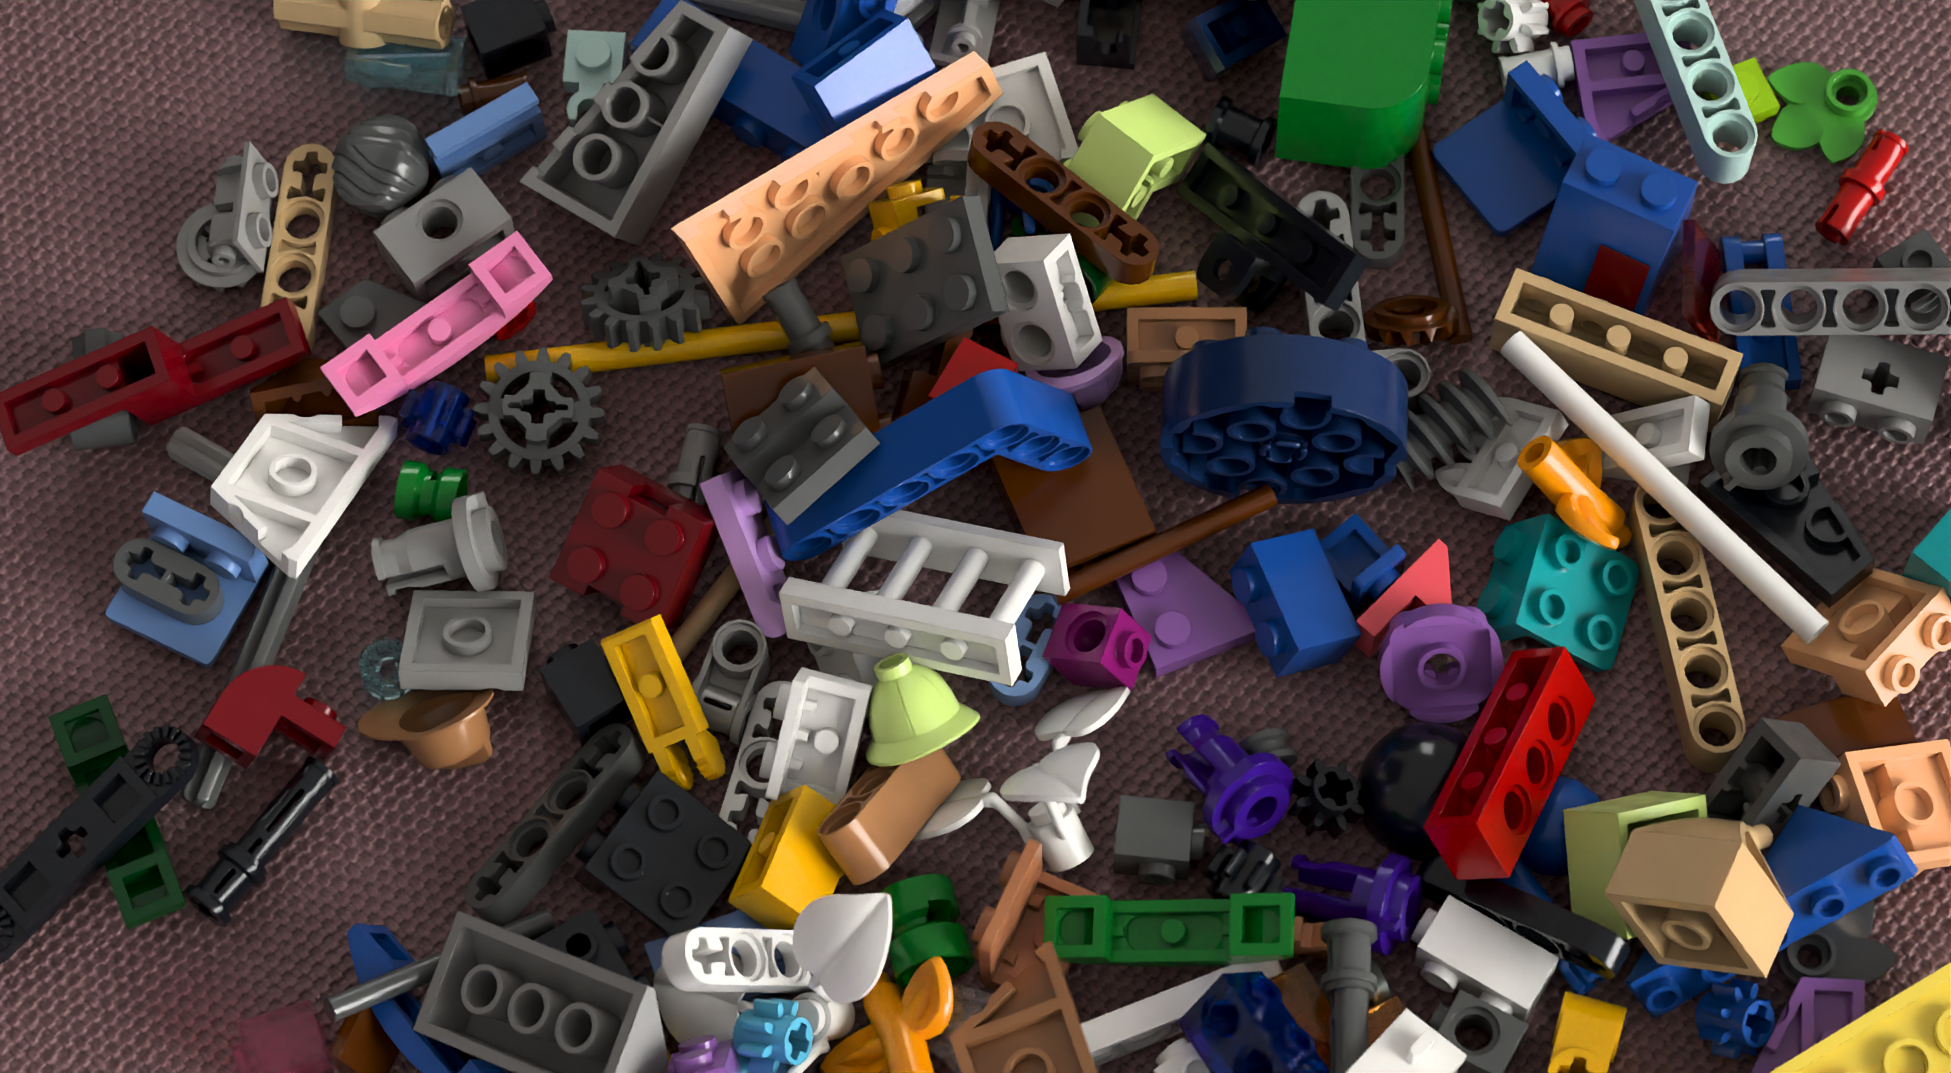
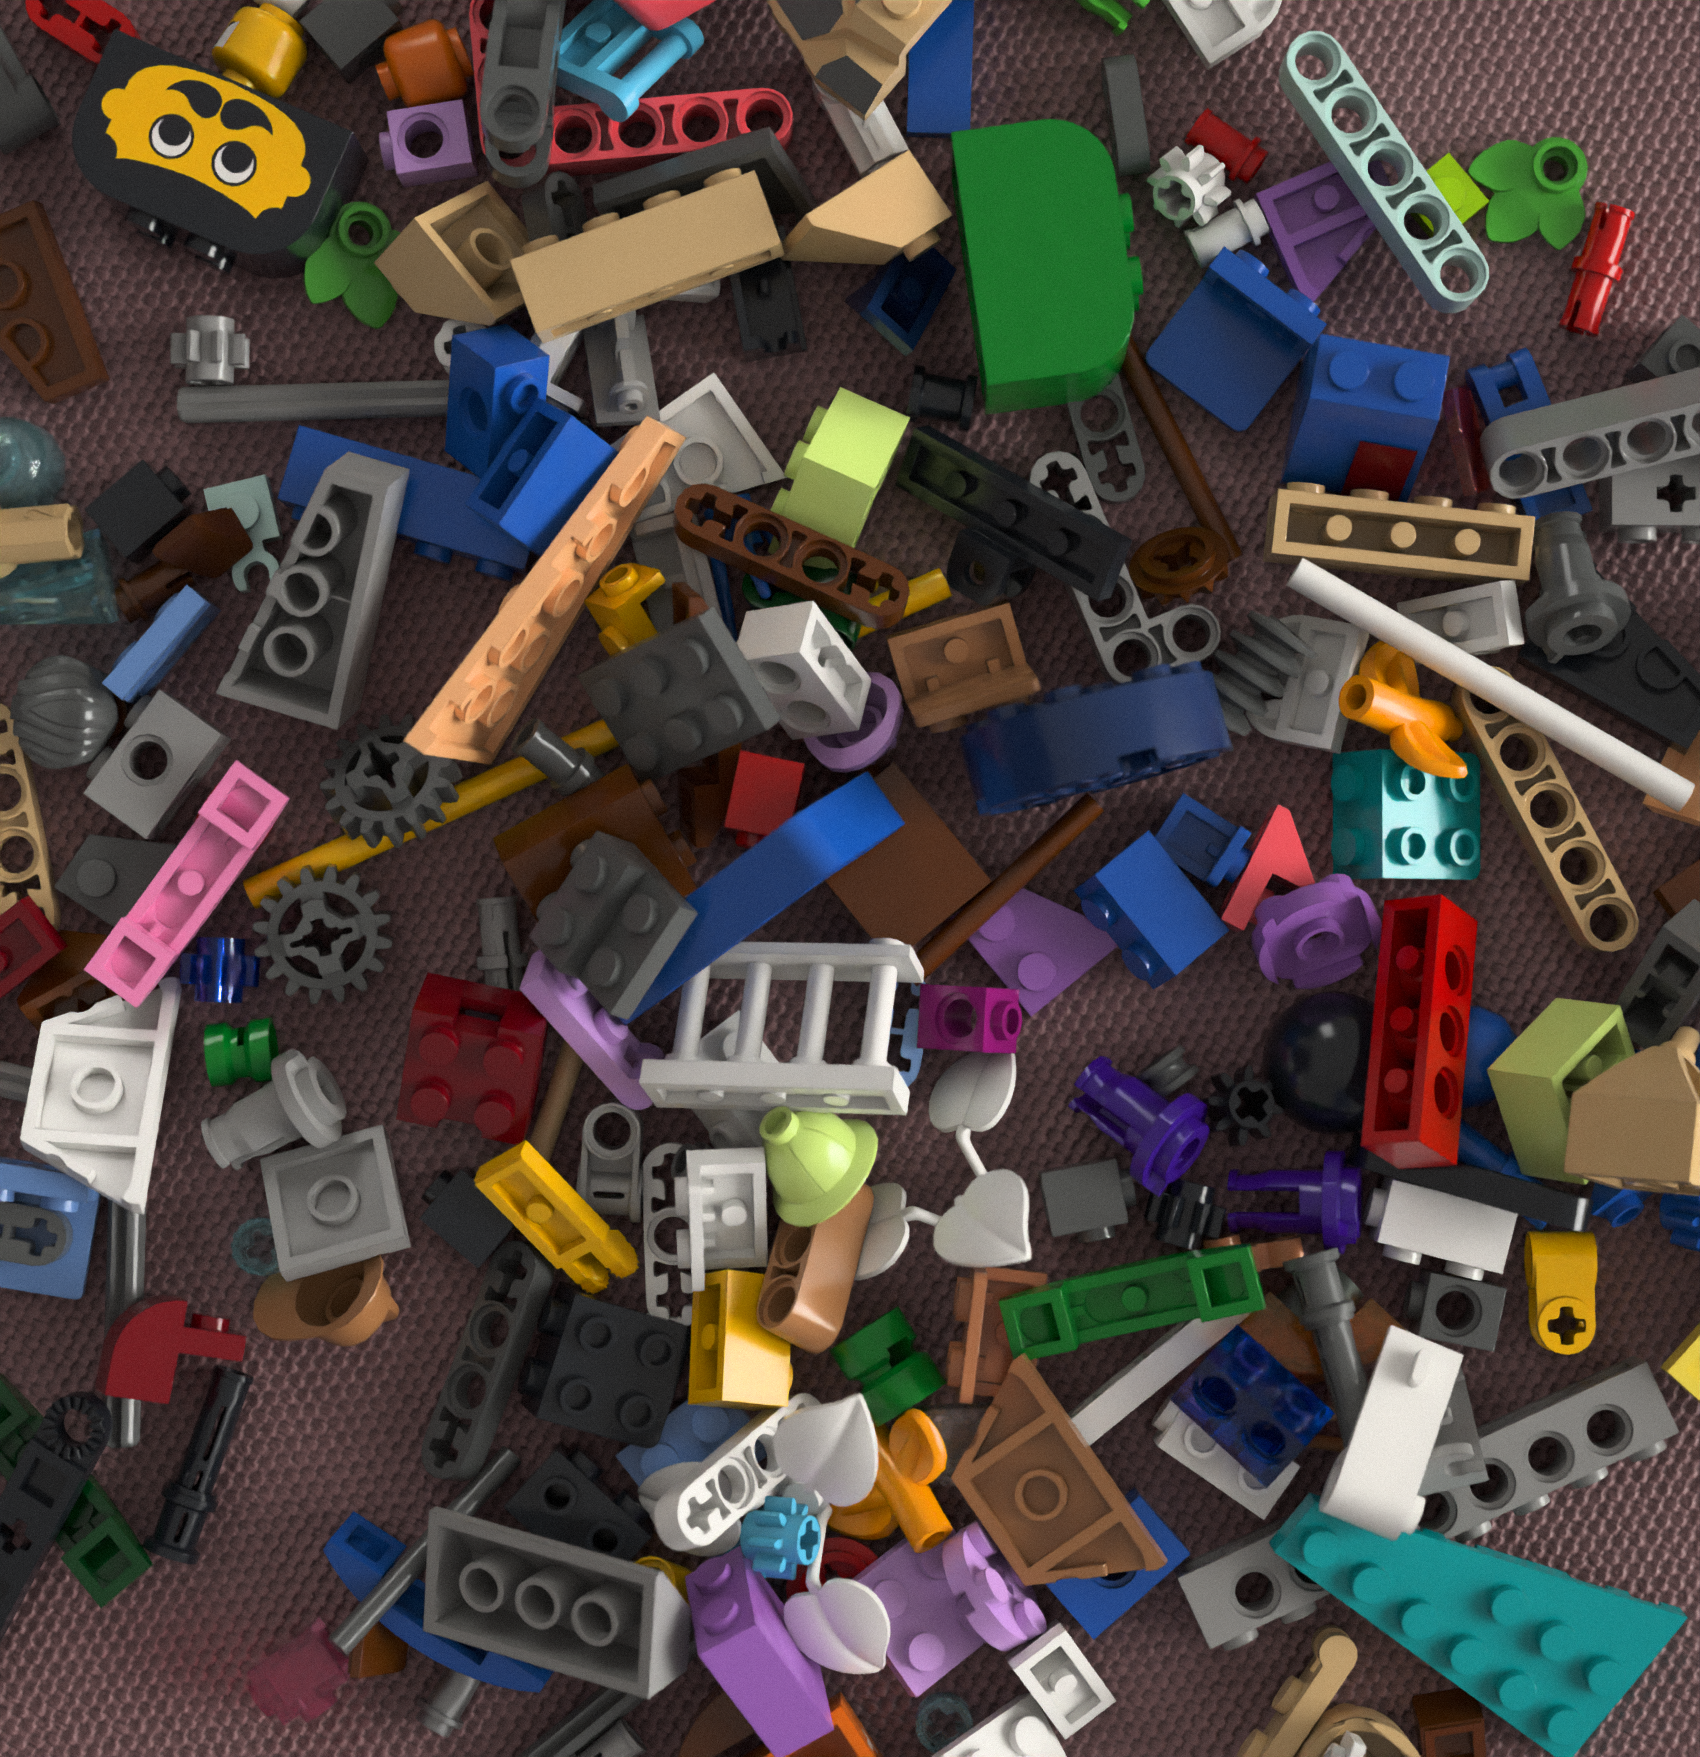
camera: 25 degrees left, 20 degrees up
(553, 64) = (206, 543): none -> reddish brown slope

